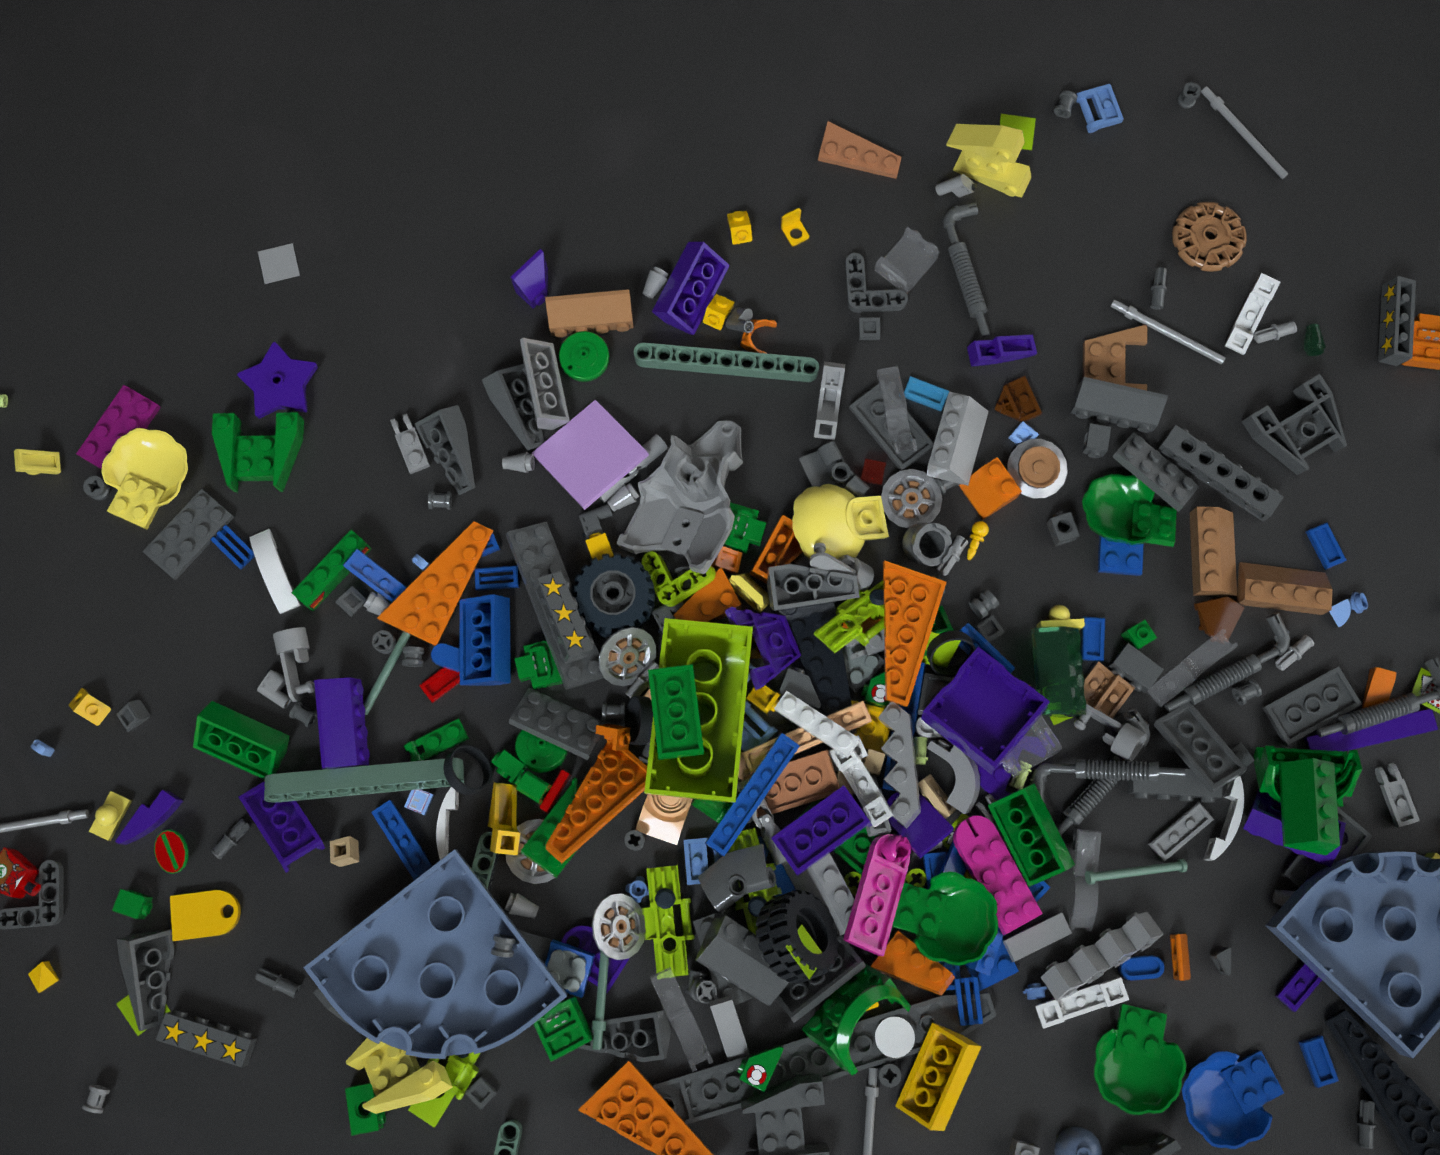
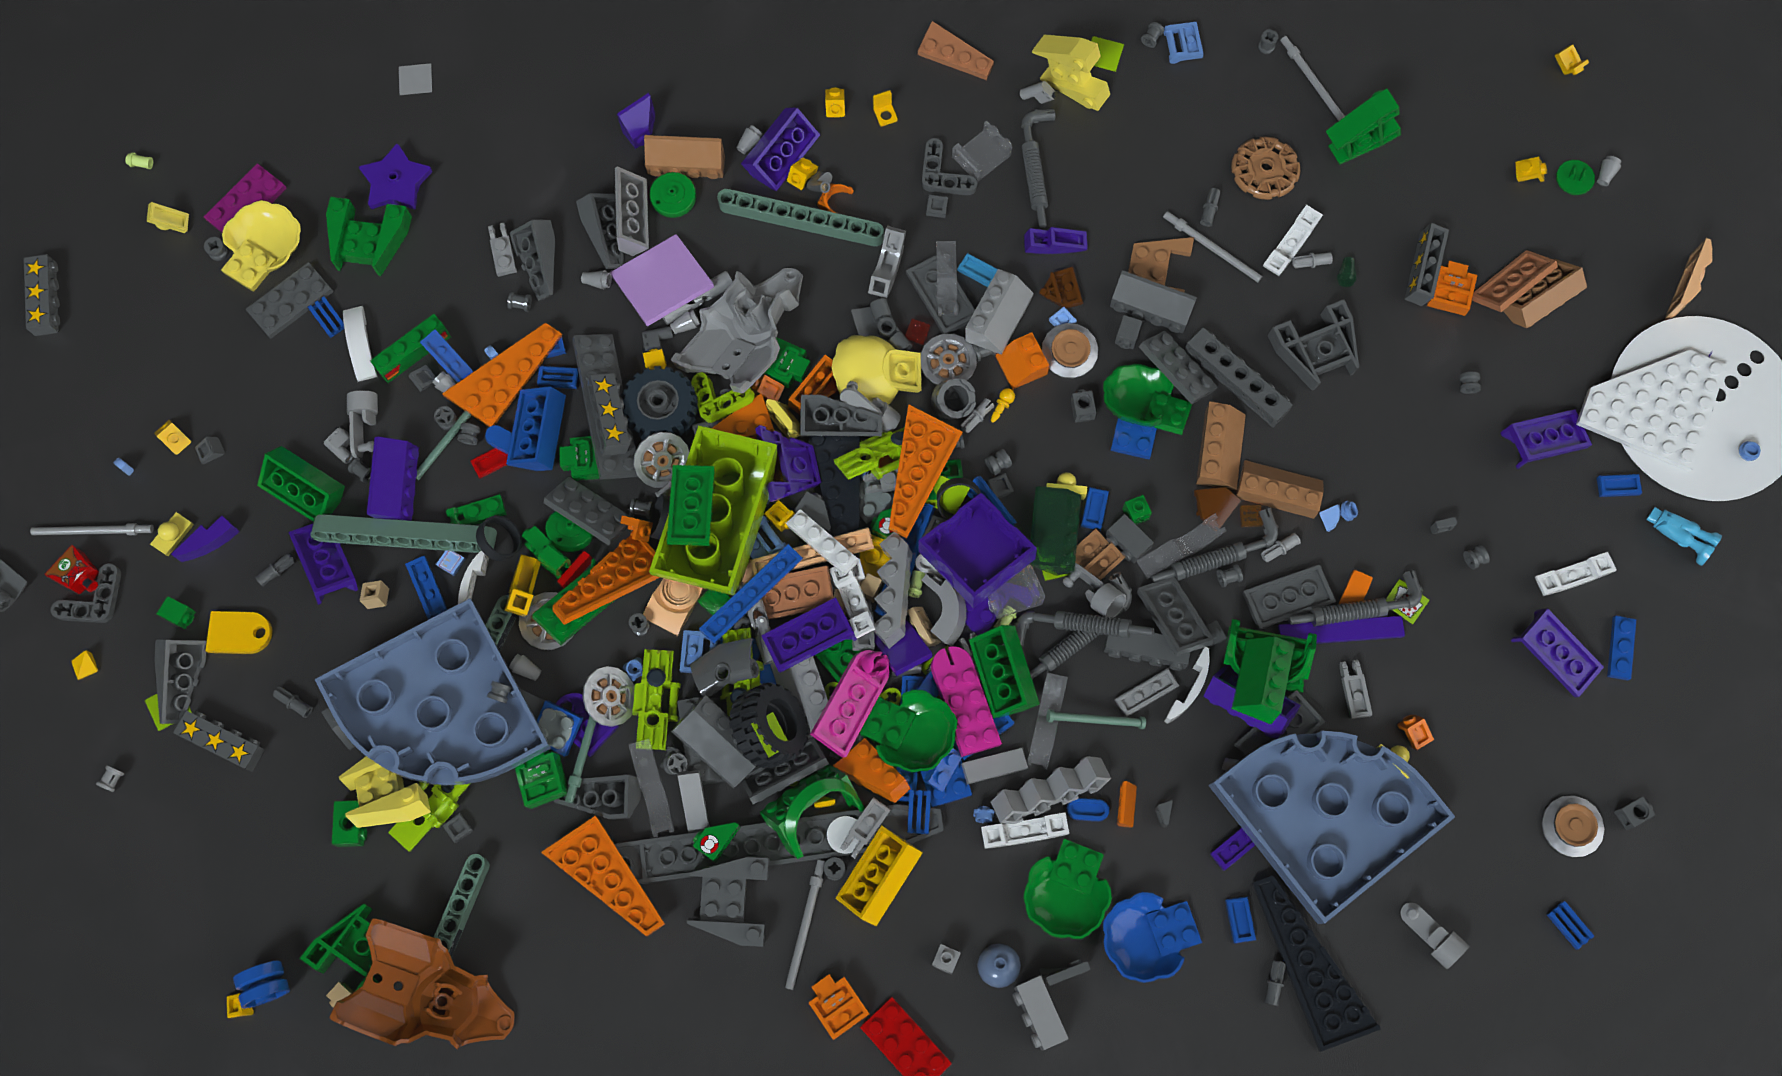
camera: 10 degrees right, 5 degrees down
(171, 851) = (219, 571): red piece -> none
(916, 1026) = (866, 825): none -> light grey hinge
(1256, 622) = (1250, 516): none -> clear orange tile
(1313, 179) = (1365, 127): none -> green wedge
(1326, 546) = (1327, 457): blue tile -> none

